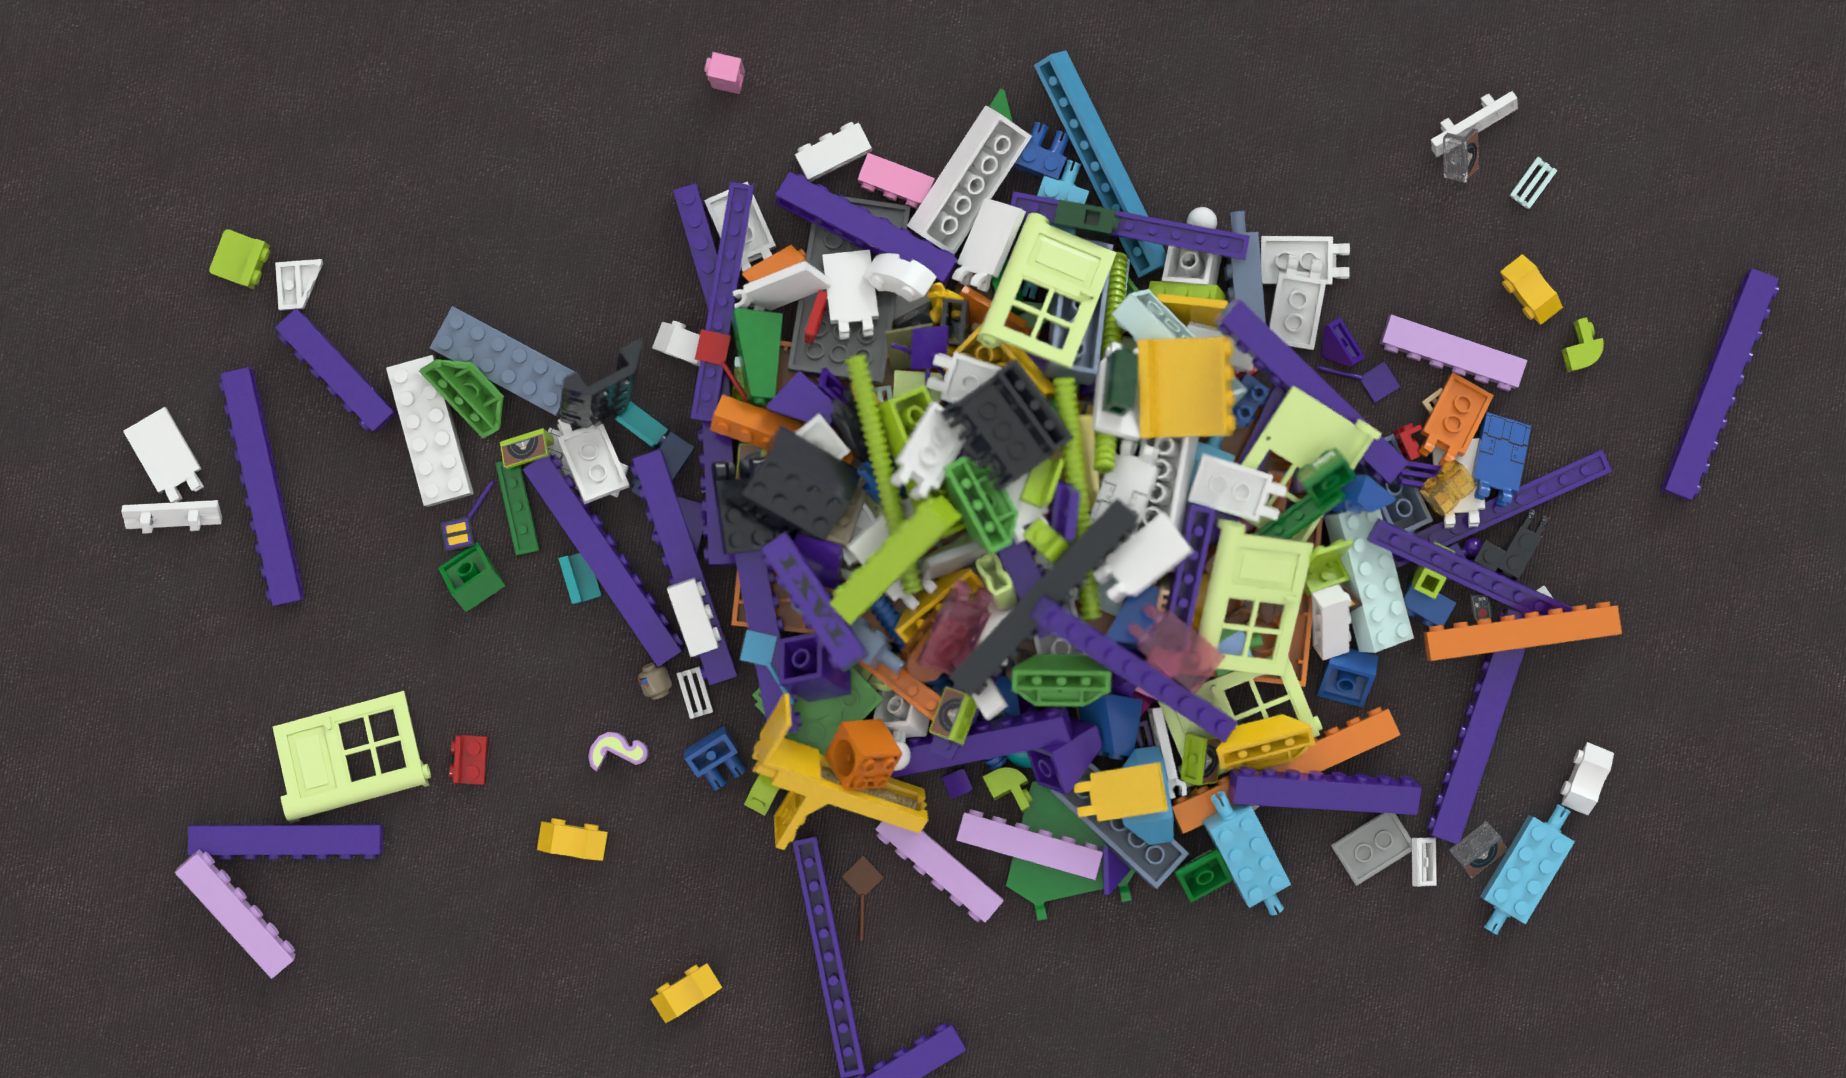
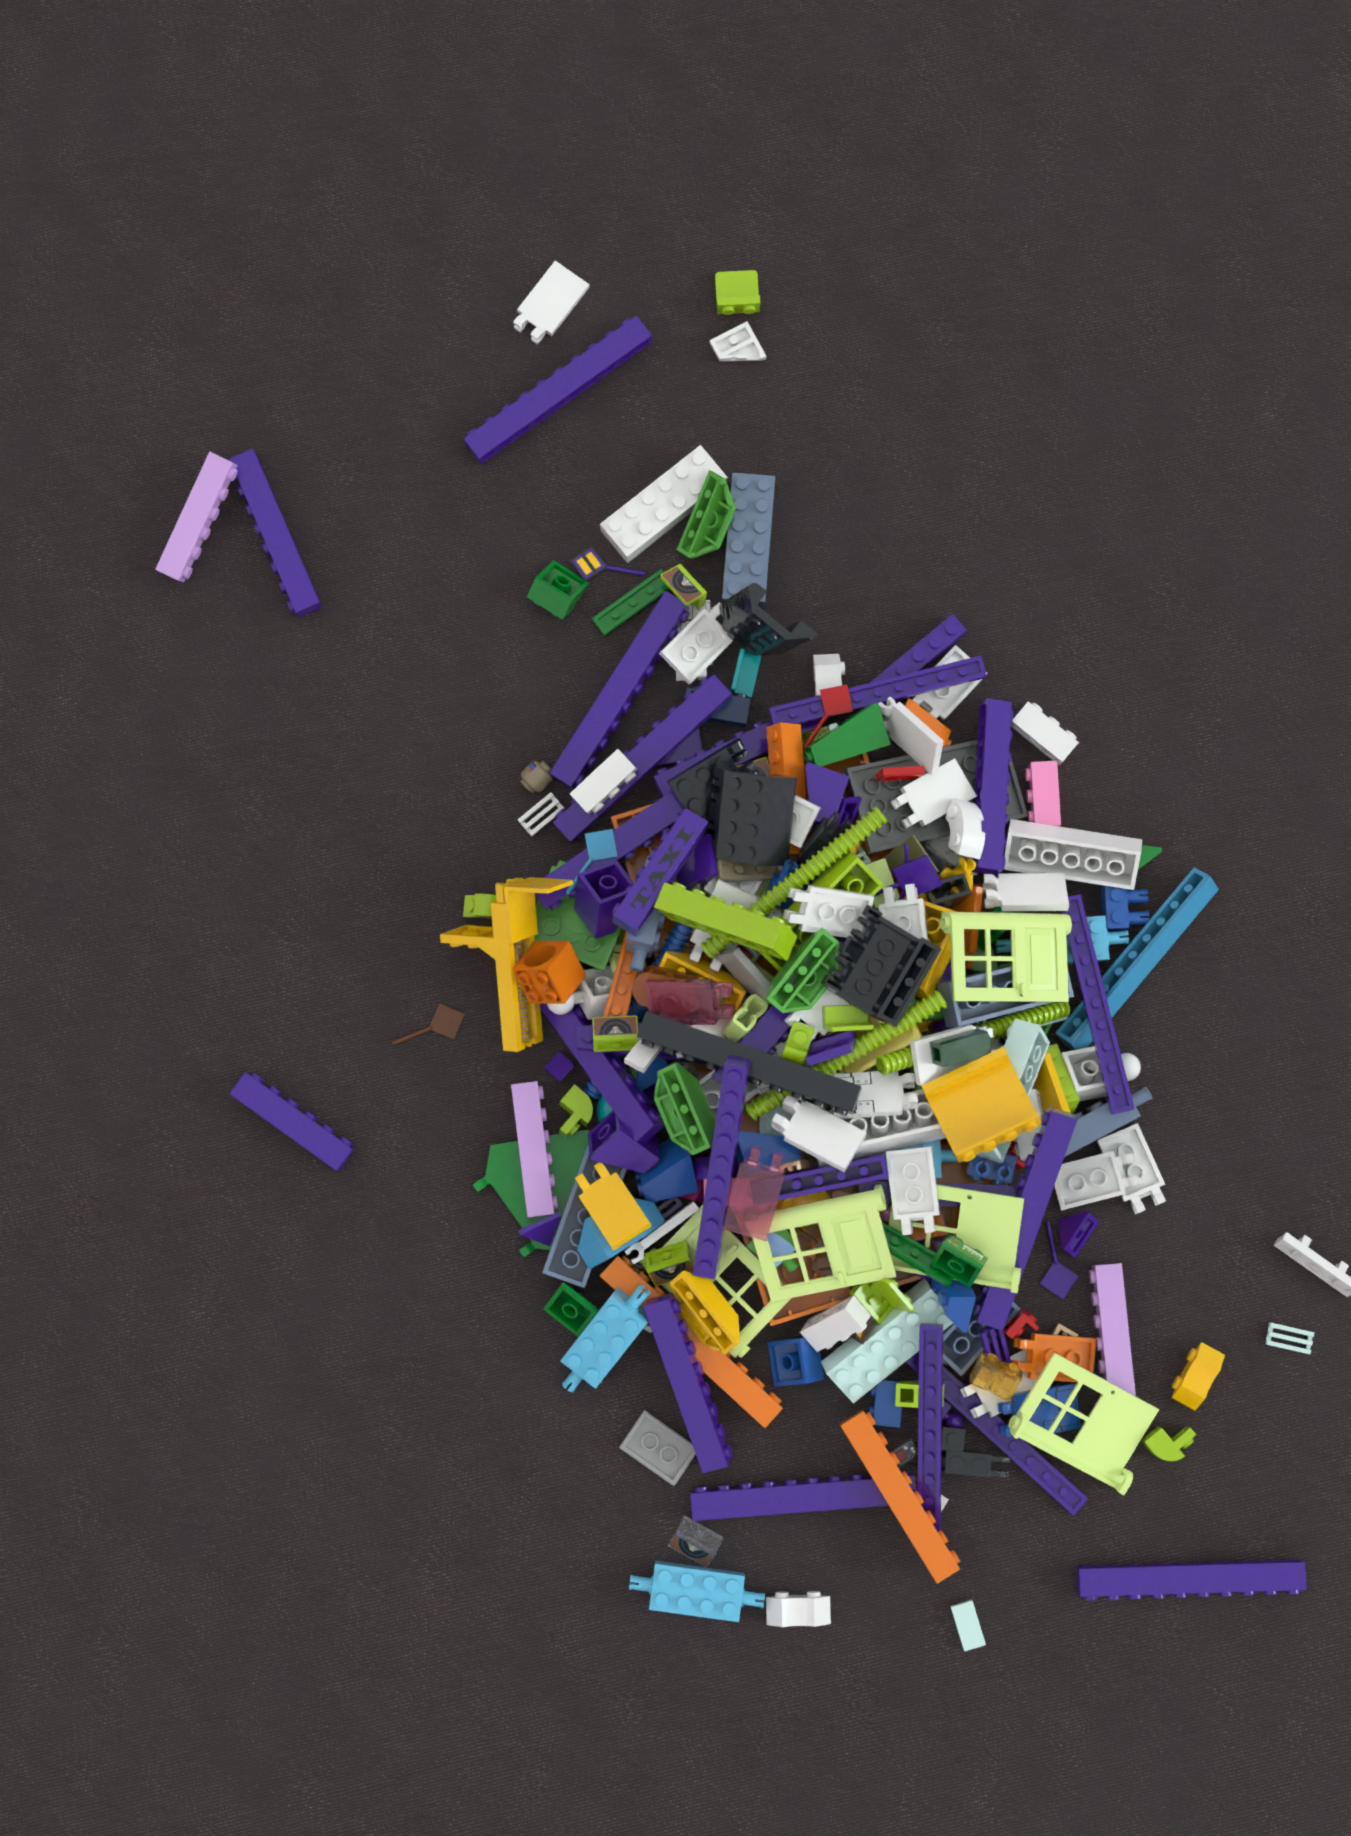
camera: 65 degrees right, 5 degrees down
(171, 515) = (503, 328): white hinge -> none
(317, 764) = (350, 530): yellowish green door -> none
(335, 370) = (679, 408): dark purple brick -> none
(469, 759) = (405, 653): red bracket -> none
(570, 840) = (374, 766): yellow brick -> none
(579, 579) = (593, 678): teal panel -> none
(618, 745) = (470, 769): animal -> none
(686, 992) = (286, 915): yellow brick -> none
(712, 751) = (496, 847): blue brick -> none
(725, 72) = (1070, 613): bright pink brick -> none
(829, 956) = (366, 1020): dark purple brick -> none
(943, 868) = (482, 1086): lavender brick -> none
(1086, 218) = (1086, 963): dark green brick -> none
(1420, 874) = (663, 1495): white tile -> none
(1460, 155) = (1285, 1264): clear panel -> none
(1551, 406) = (1107, 1434): none -> yellowish green door
(1671, 620) = (968, 1625): none -> light aqua tile

